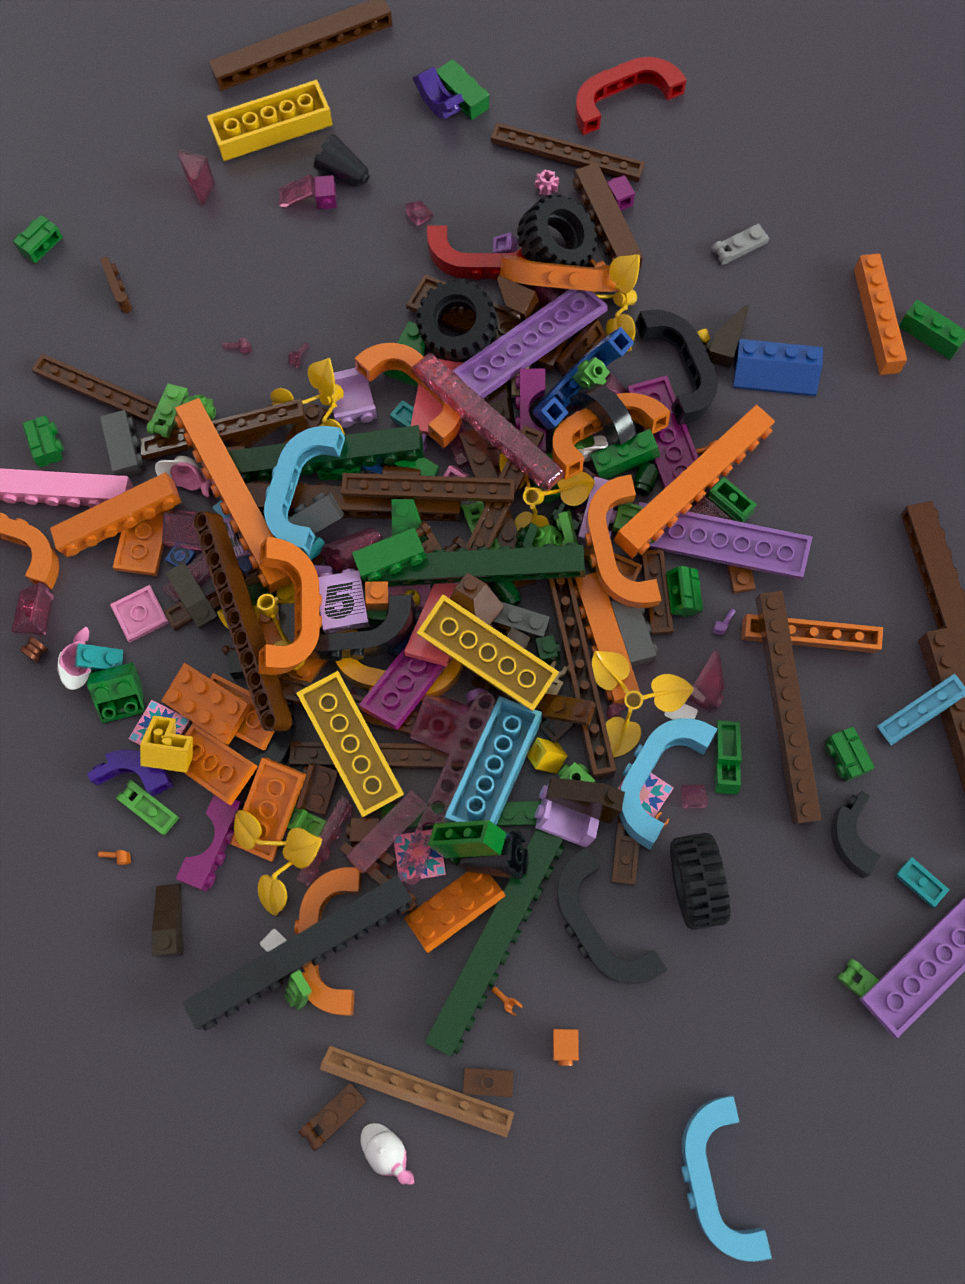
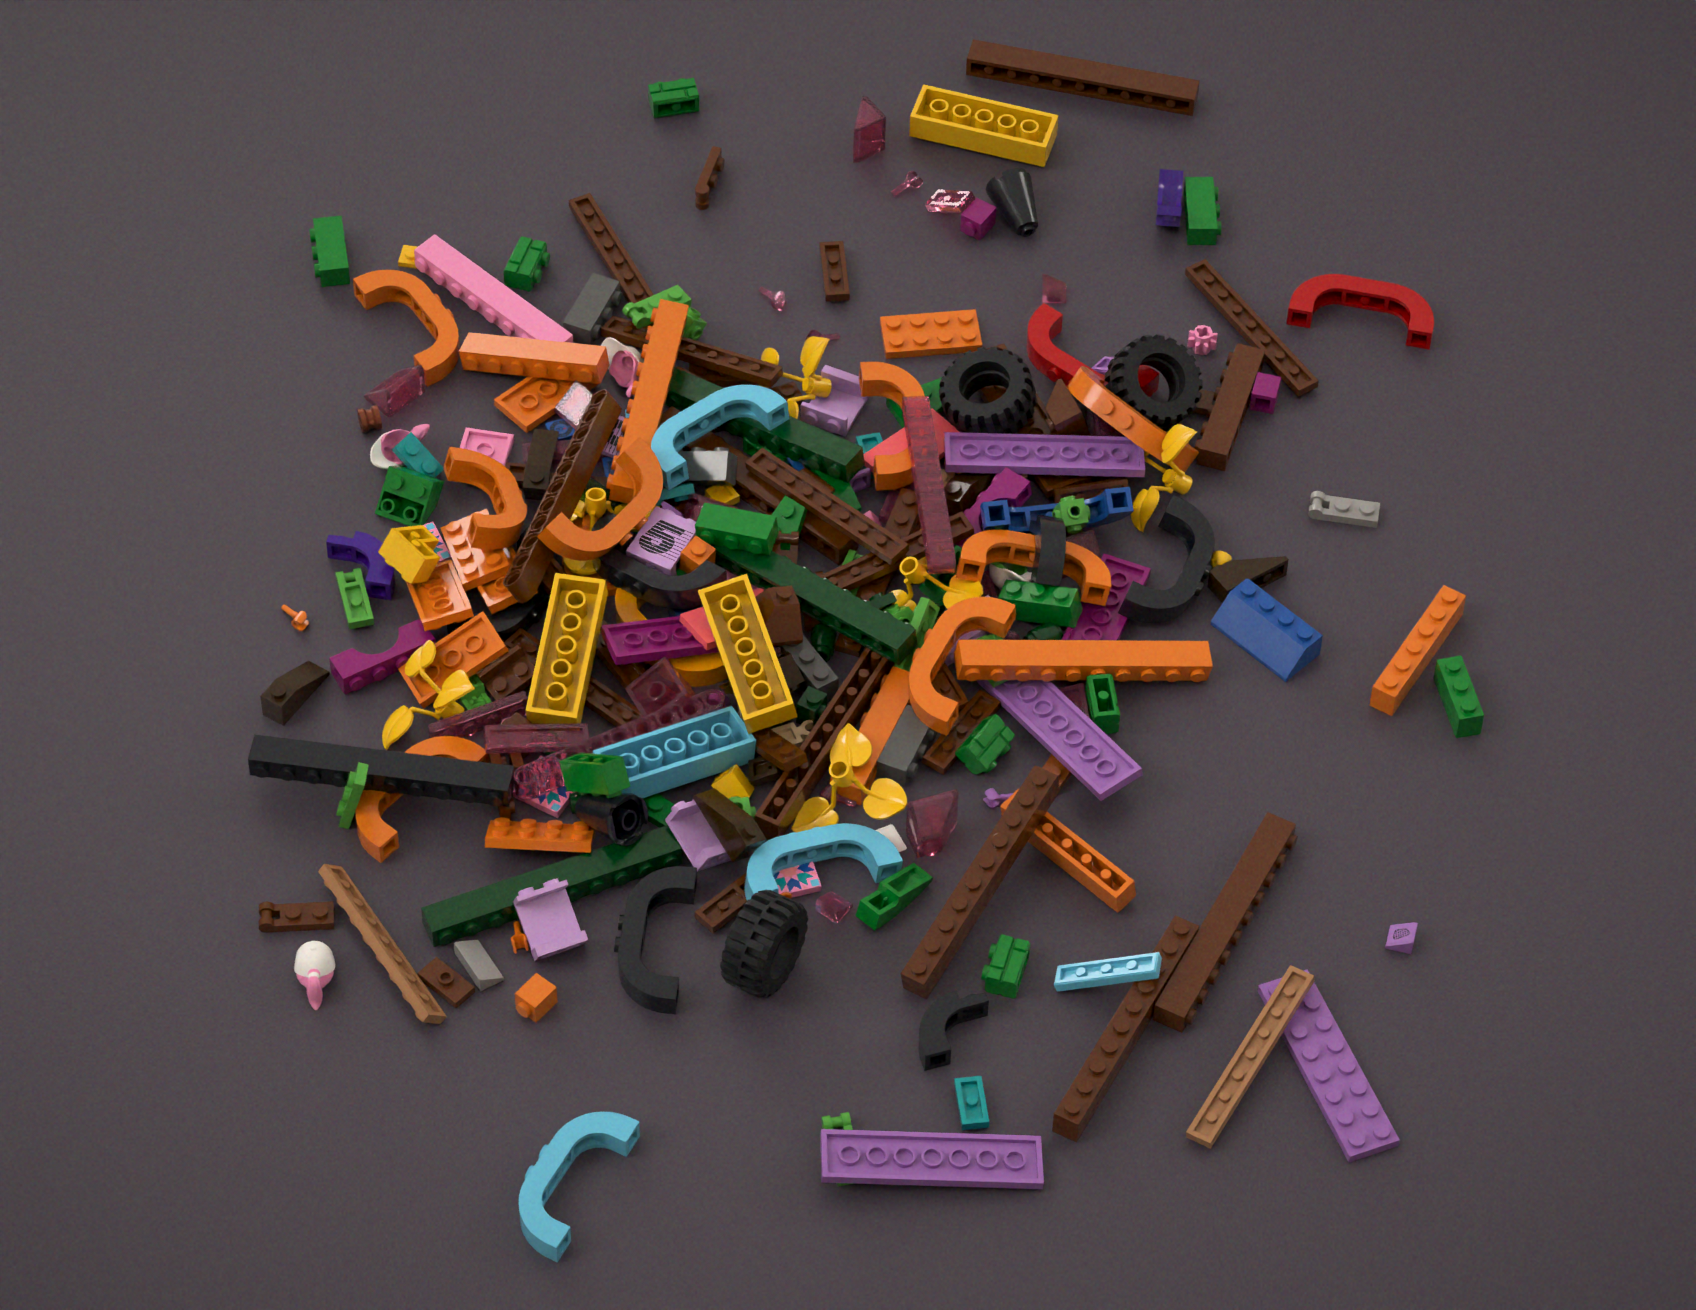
camera: 35 degrees right, 20 degrees down
(166, 632) = (500, 484): none -> orange arch
(254, 197) = (908, 182): none -> clear pink hand
(263, 297) = (834, 271): none -> reddish brown plate
(339, 528) = (724, 494): none -> yellow plate
(367, 300) = (930, 334): none -> orange plate
(497, 1046) = (477, 963): none -> light grey slope
(524, 975) = (549, 919): none -> lavender panel

